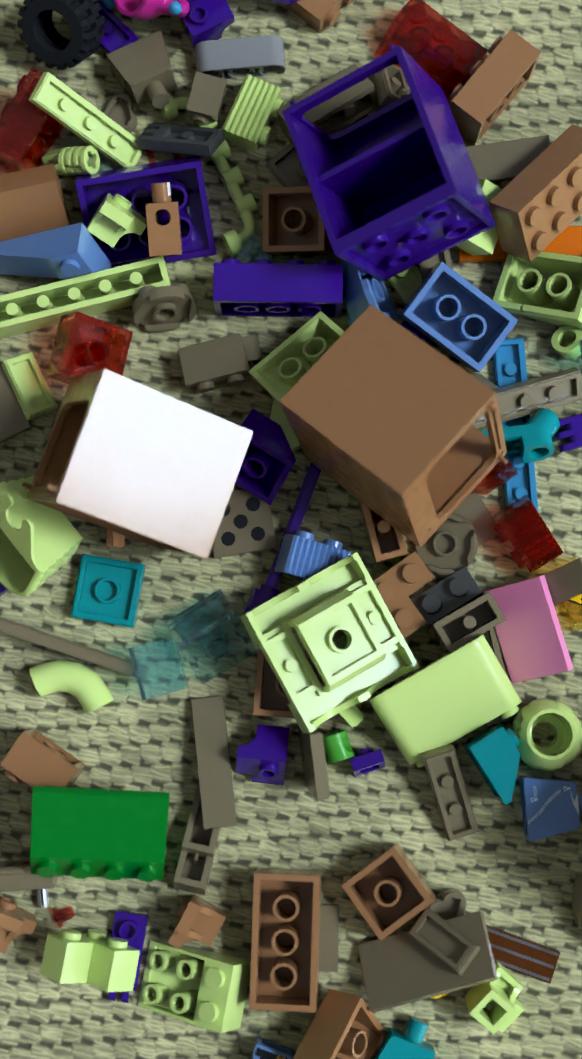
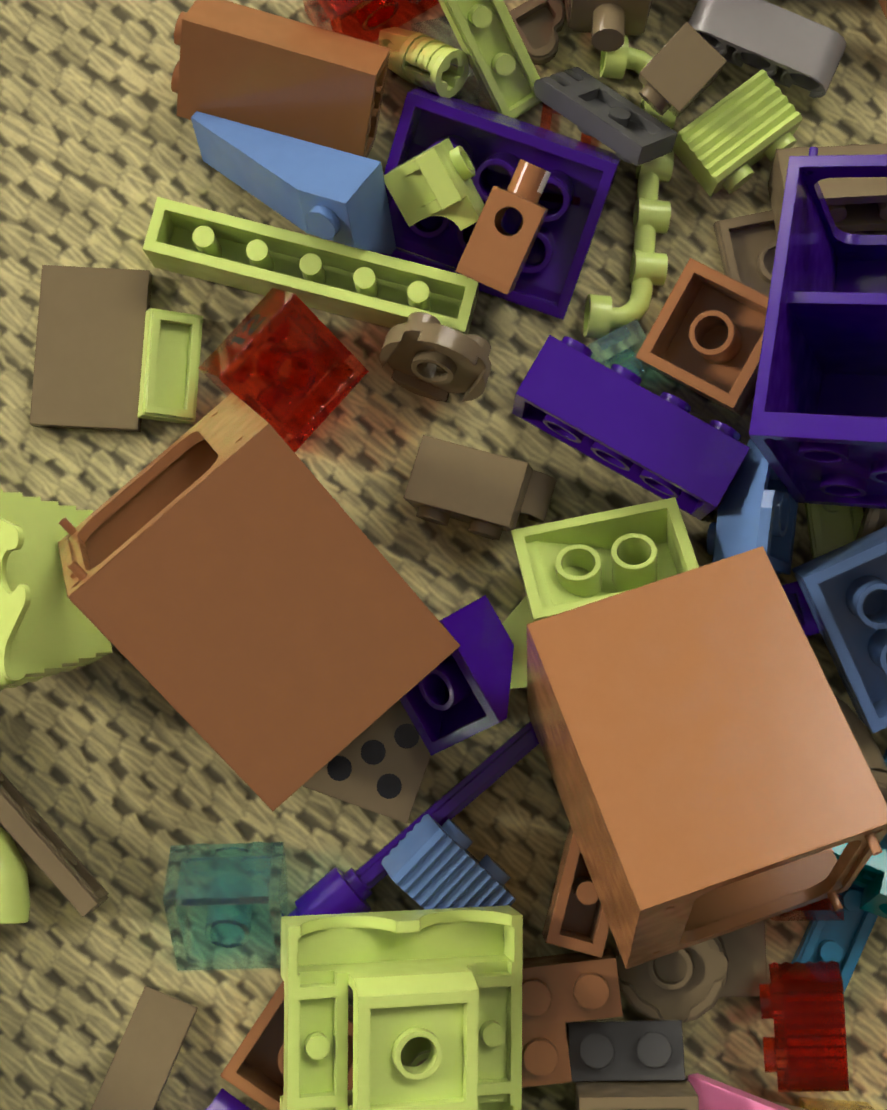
camera: 30 degrees right, 0 degrees up
(108, 590) = (113, 746): teal plate -> none
(158, 668) = (118, 914): clear light blue piece -> none

